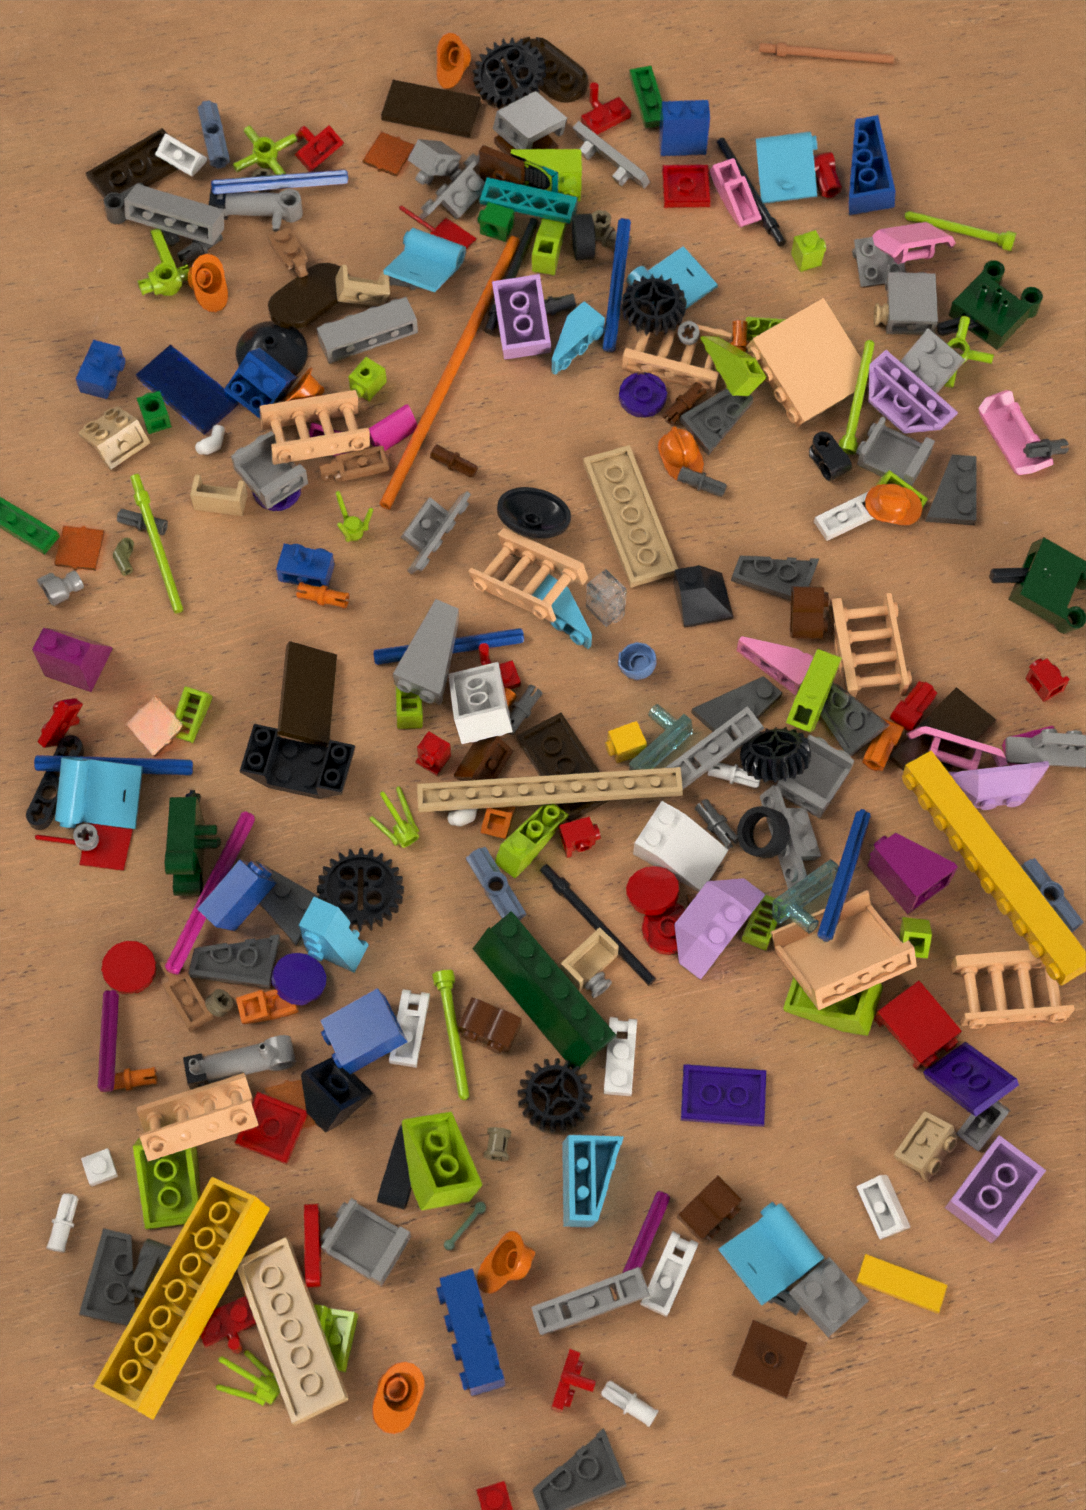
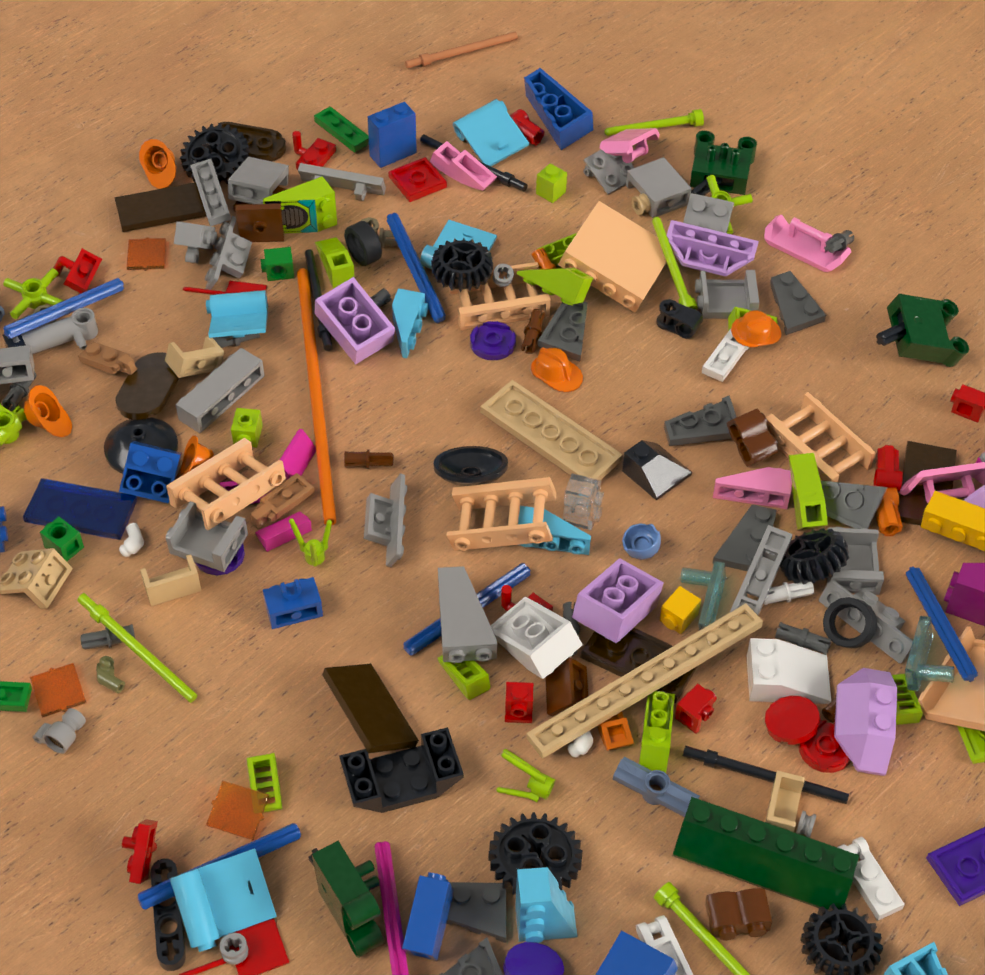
camera: 30 degrees left, 15 degrees down
(70, 658) = (116, 788): magenta slope -> none
(322, 595) = (324, 619): orange pin -> none
(352, 493) = (281, 531): none -> dark pink slope
(477, 116) = (210, 192): none -> light grey plate
(529, 200) = (297, 235): teal fence -> none
(572, 706) = (617, 600): none -> lavender brick
(701, 481) = (590, 382): dark grey axle -> none

